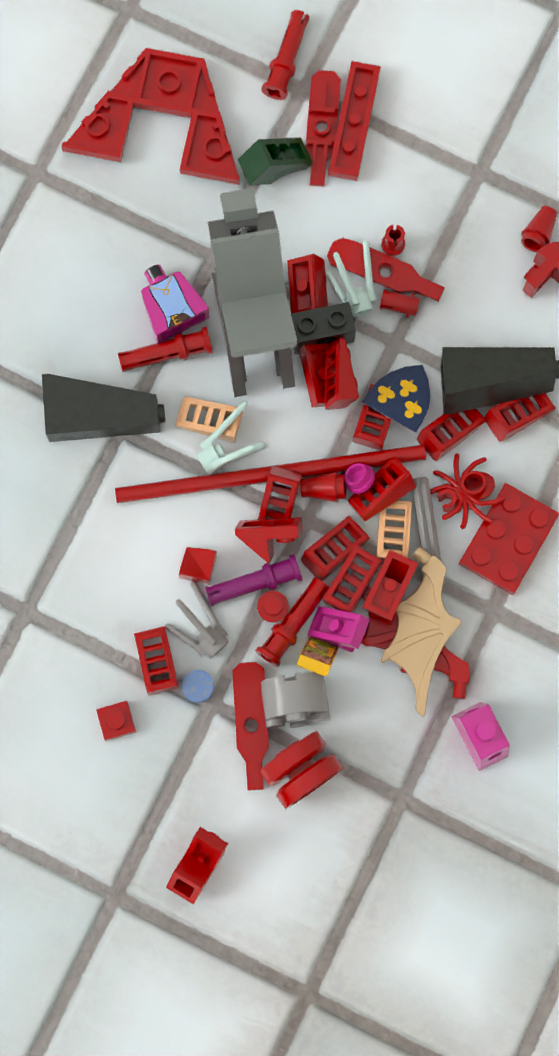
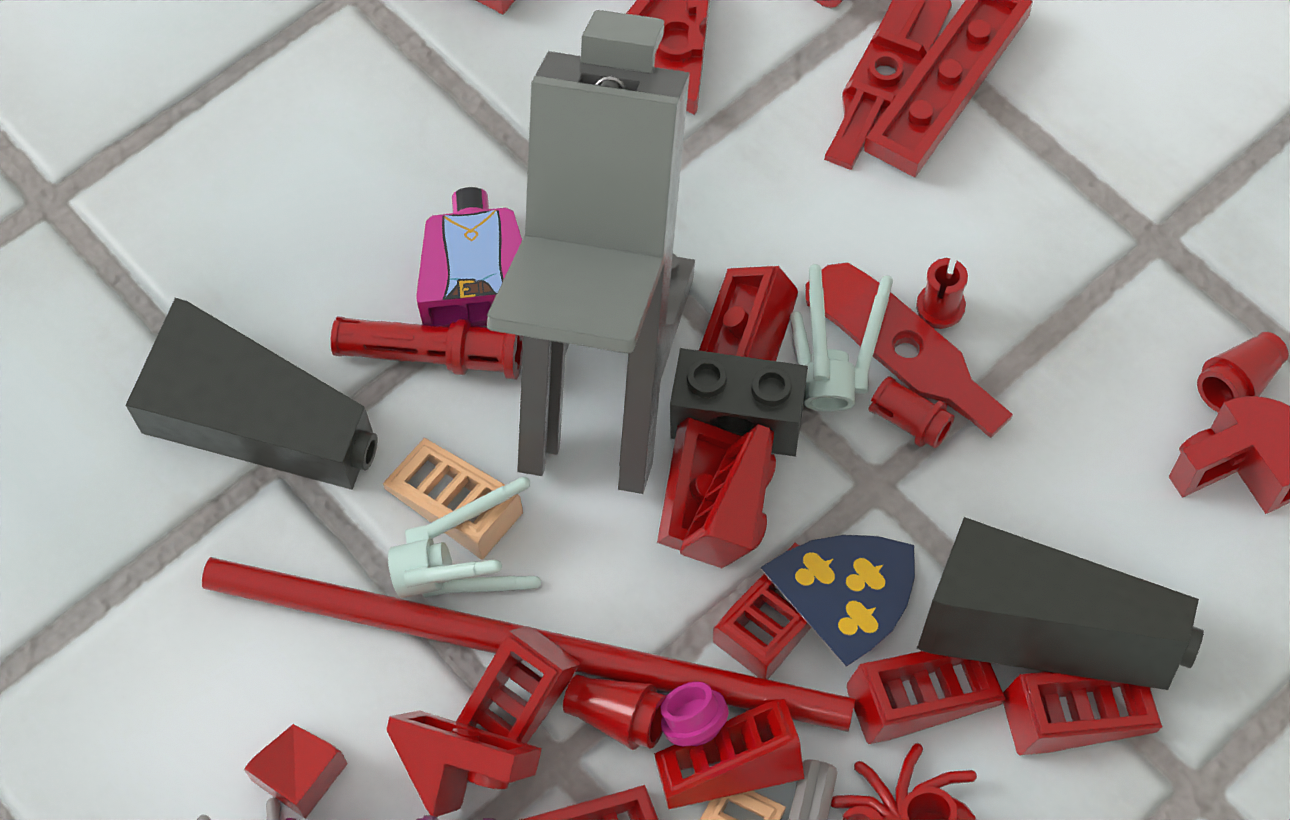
camera: 25 degrees right, 15 degrees down
(273, 159) = (770, 85): dark green arch -> none

